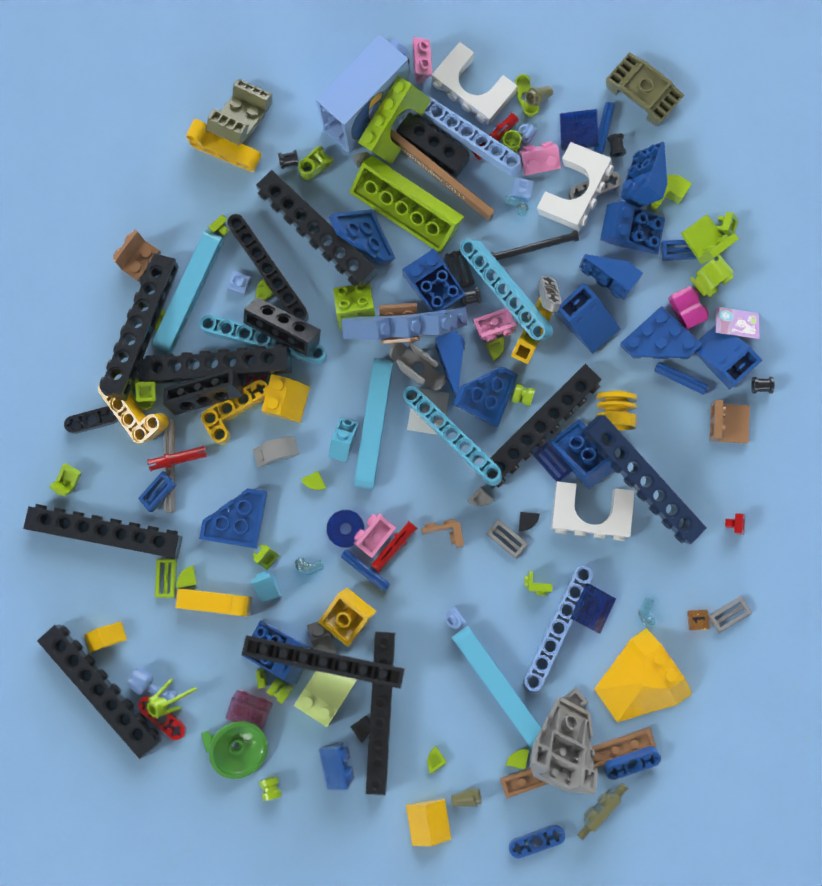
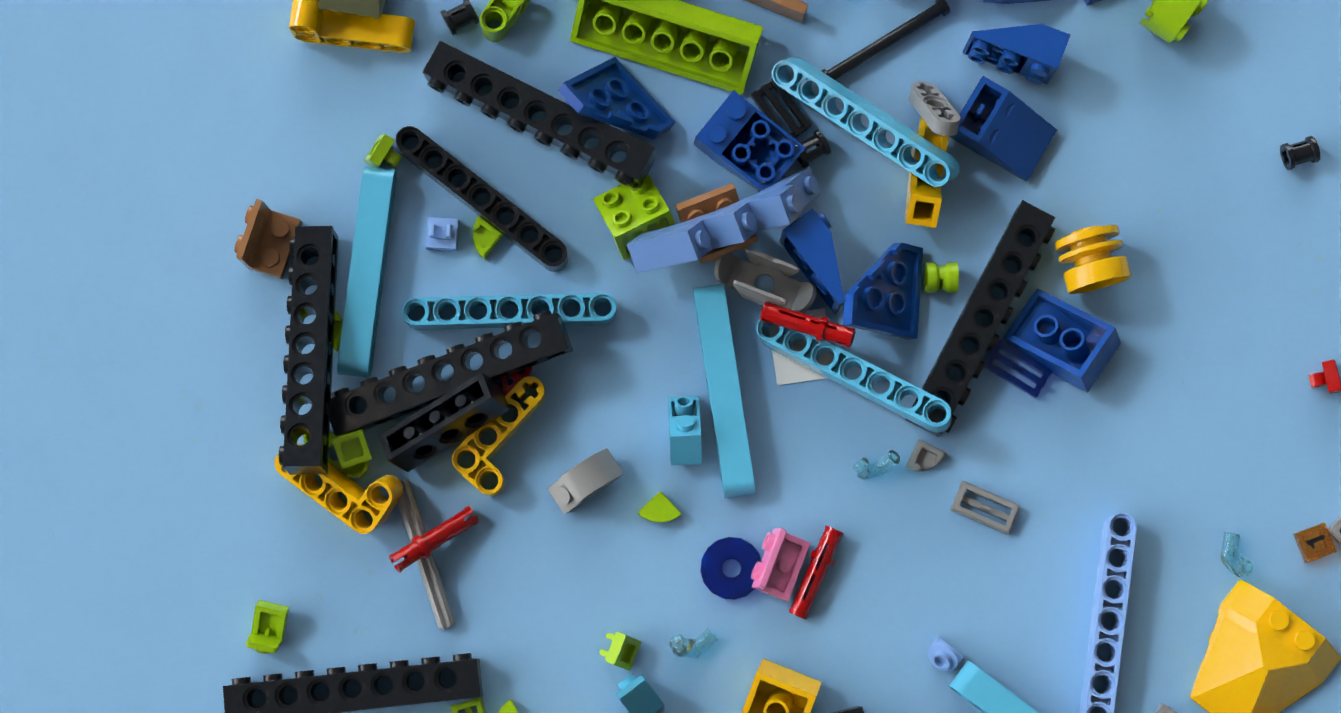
camera: 25 degrees left, 0 degrees up
(77, 418) = (262, 538): black beam -> none
(159, 494) = (431, 578): blue tile -> none
(237, 520) = (558, 608): blue plate -> none
(281, 326) = (535, 282): black brick -> none
(285, 398) = (574, 394): yellow slope -> none
(365, 570) = (782, 623): blue axle -> none
(439, 402) = (807, 324): none -> red pin
(442, 495) = (879, 467): none -> clear light blue arm
(455, 536) = (909, 525): medium nougat bracket -> none
(495, 324) = (863, 180): bright pink bracket -> none
(495, 348) = (874, 217): lime tile -> none
(527, 520) = (1008, 470): black tile -> none
(540, 588) = (1062, 569): lime bracket -> none
(593, 608) = (1152, 574): clear blue tile -> none
(616, 525) = (1146, 434): white arch -> none
(661, 338) = (1124, 127): blue plate -> none
(681, 378) = (1173, 178): blue axle -> none
(688, 308) = (1151, 67): dark pink brick -> none
(692, 526) = (1261, 401): dark blue brick -> none
(727, 357) = (1231, 124): blue slope -> none
(729, 422) = (1267, 226): medium nougat bracket -> none
(737, 323) = (1232, 68): sticker -> none

